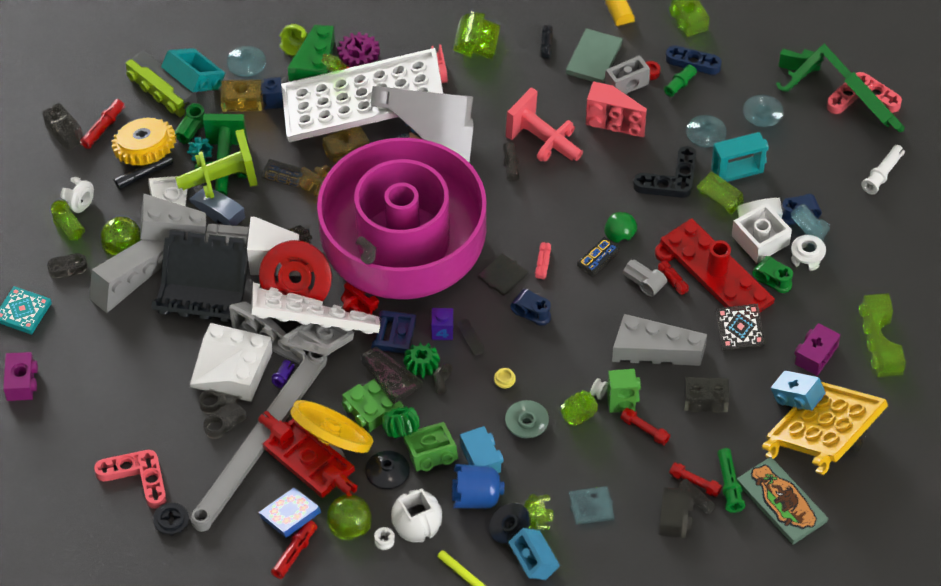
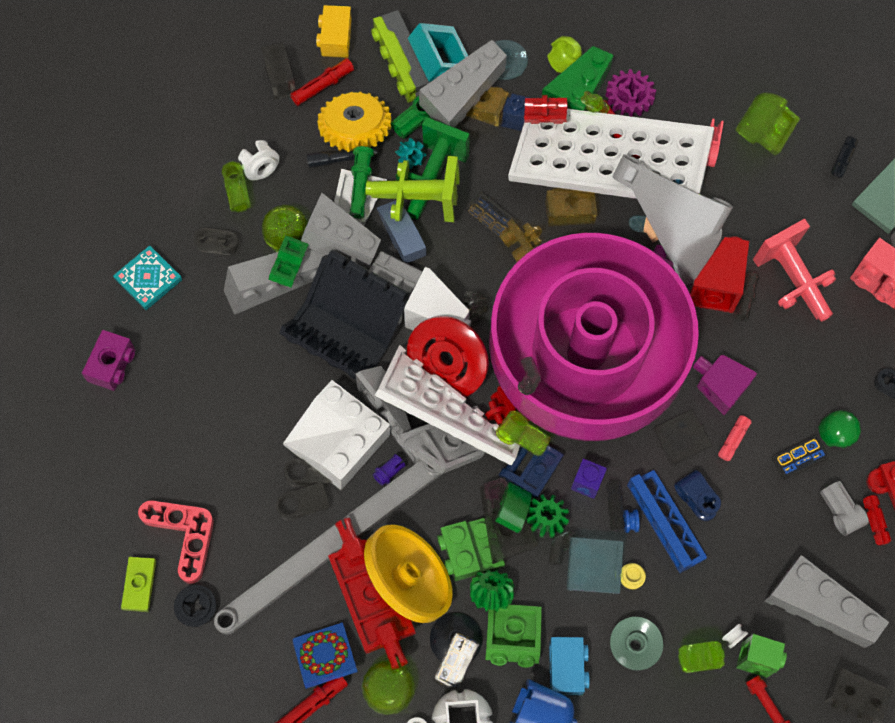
camera: 20 degrees right, 15 degrees up
(97, 83) = (335, 31): none -> yellow brick
(118, 521) = (138, 584): none -> lime plate
(138, 251) = (288, 261): none -> green slope
(166, 174) = (360, 172): none -> green pin
(222, 83) = (461, 86): none -> light grey wedge
(297, 80) = (545, 110): none -> red hips
(372, 305) = (517, 430): none -> clear neon green piece
(393, 360) = (514, 507): none -> green slope
(394, 478) = (456, 661): none -> clear smoke tile
(472, 379) = (595, 565): none -> clear light blue plate
(487, 150) = (723, 277): none -> red slope
(488, 341) = (631, 521): none -> blue bush
(511, 335) = (661, 523): none -> blue fence
(518, 224) = (723, 381): none -> magenta torso

